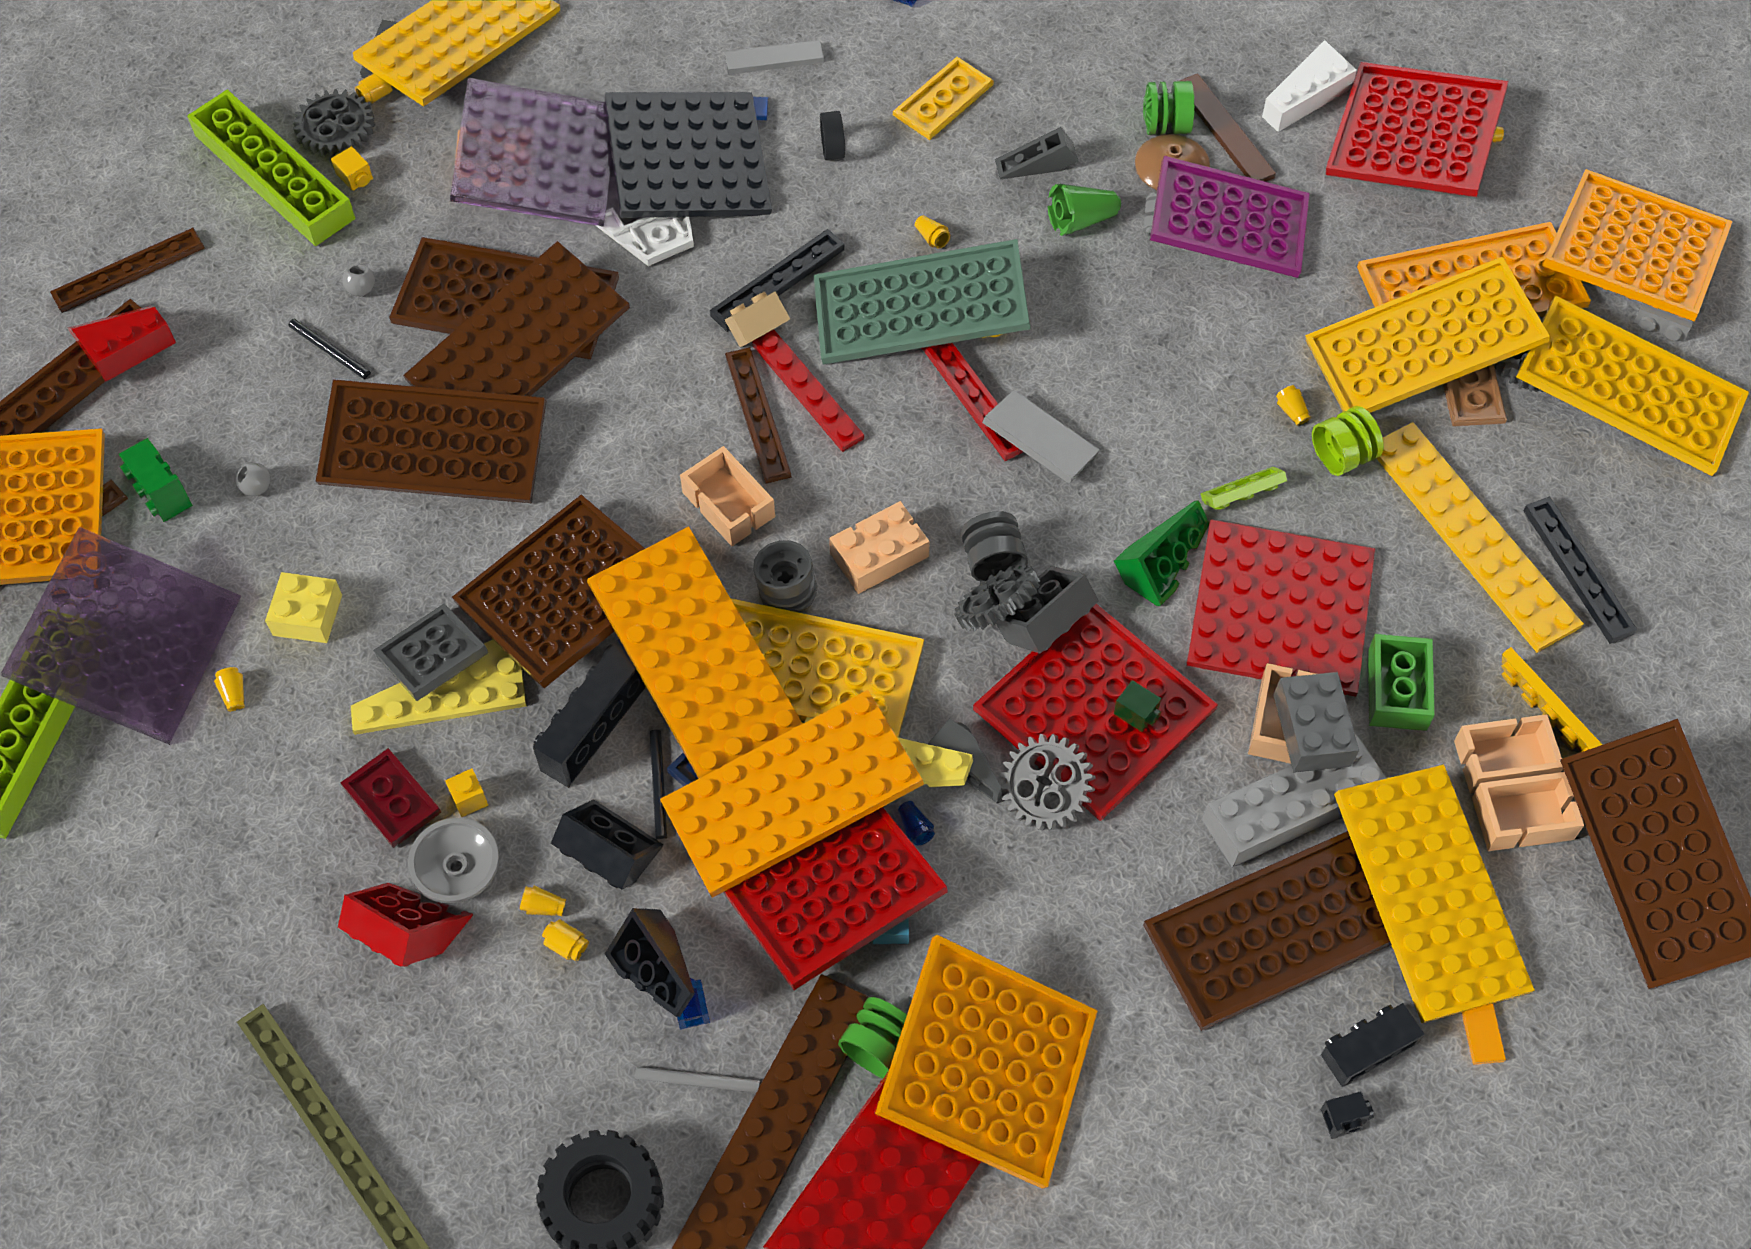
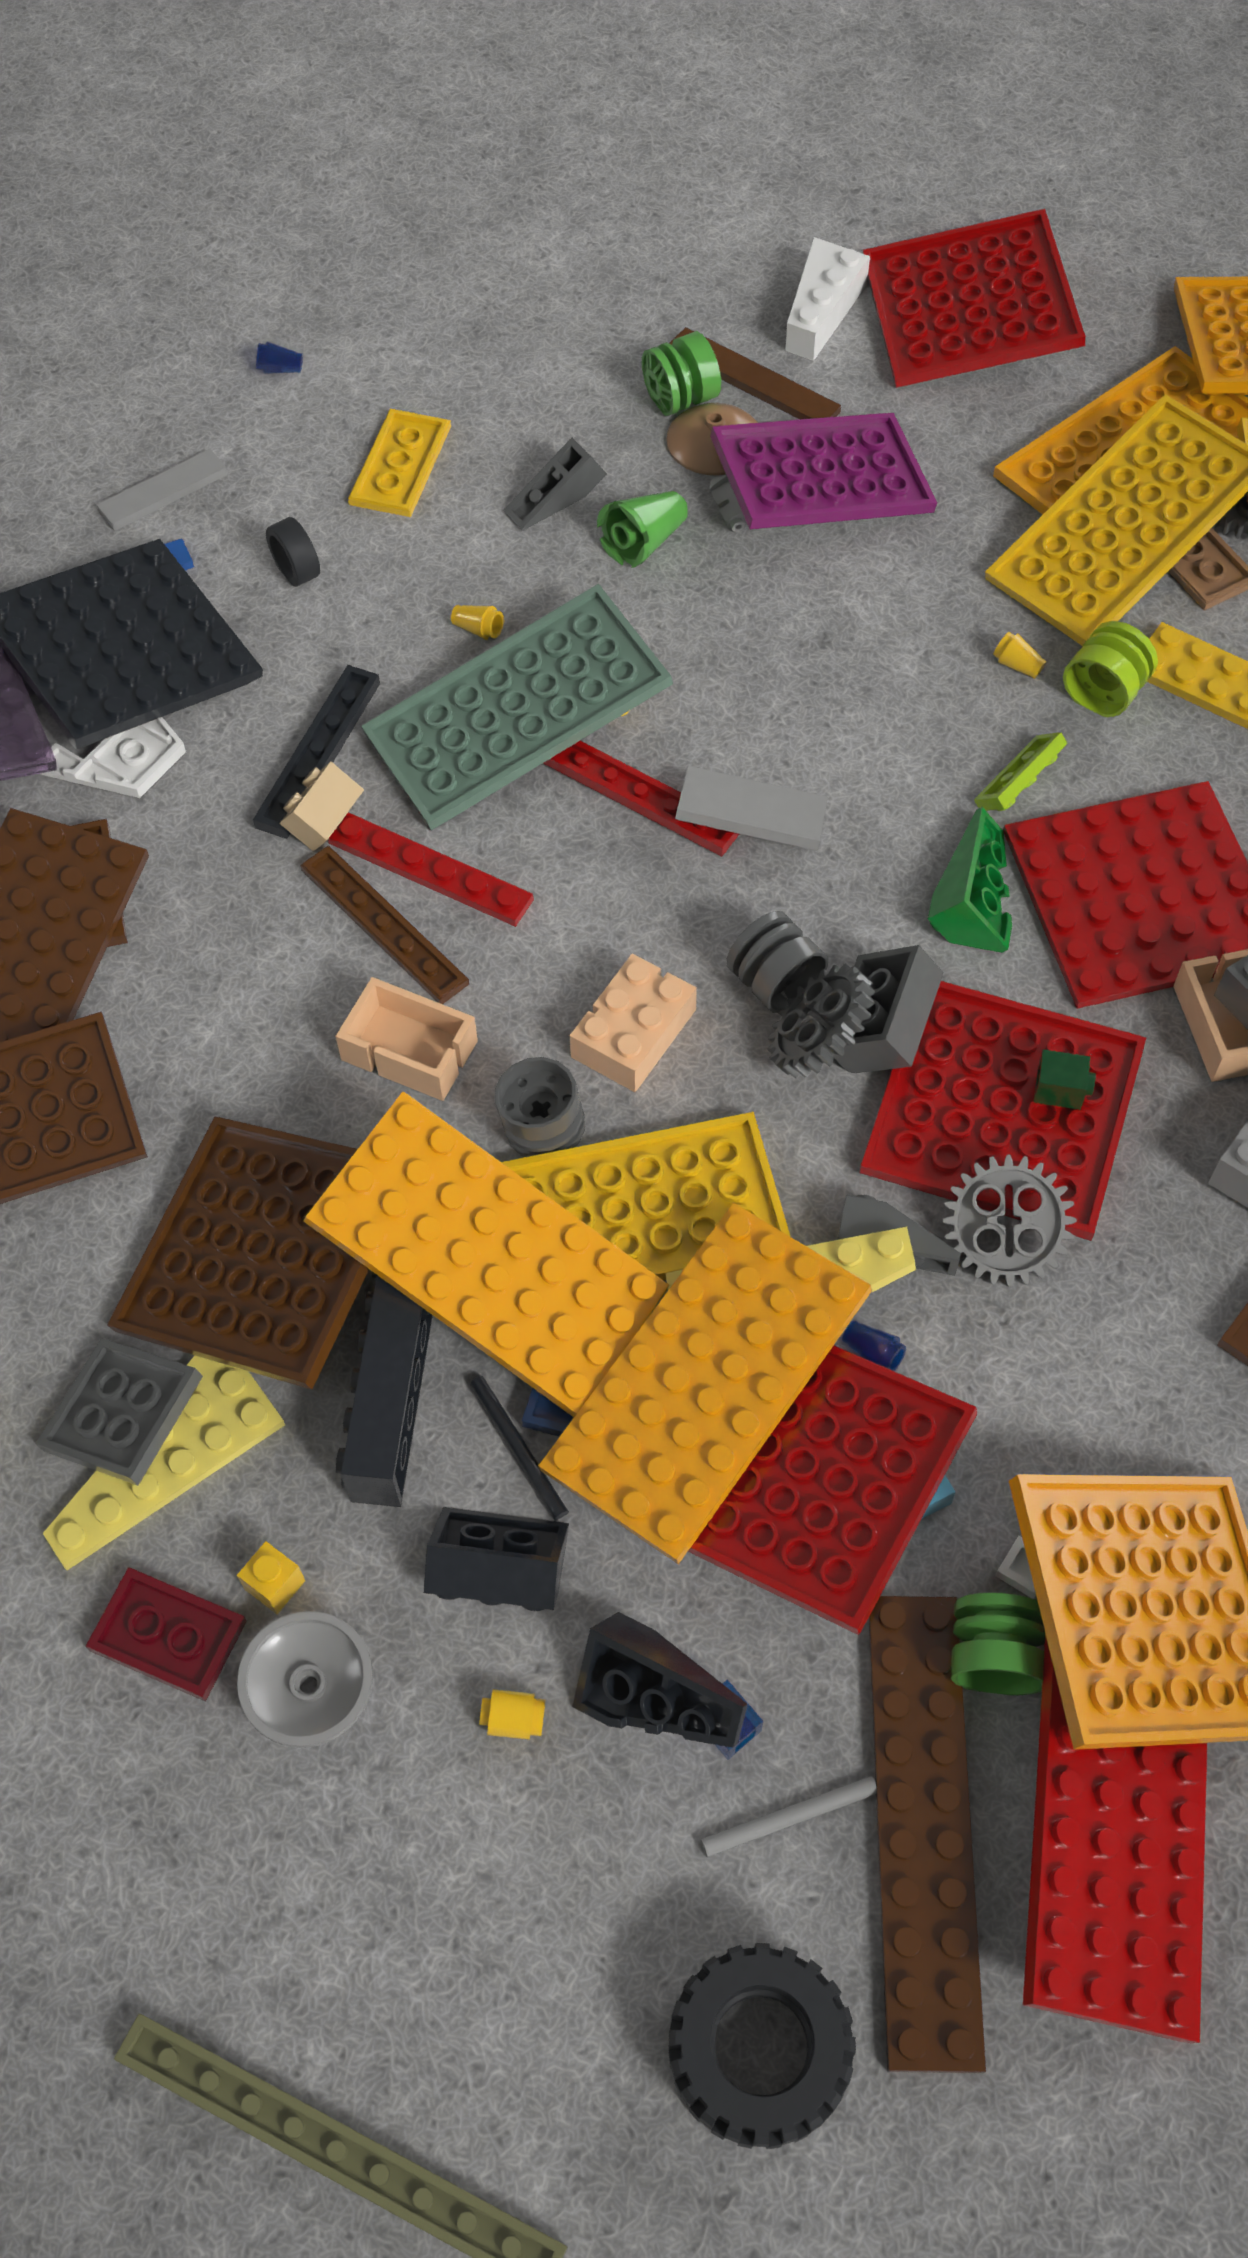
camera: 25 degrees left, 0 degrees up
(399, 924) = (273, 1804): red wedge -> none
(541, 902) = (452, 1678): yellow cone -> none

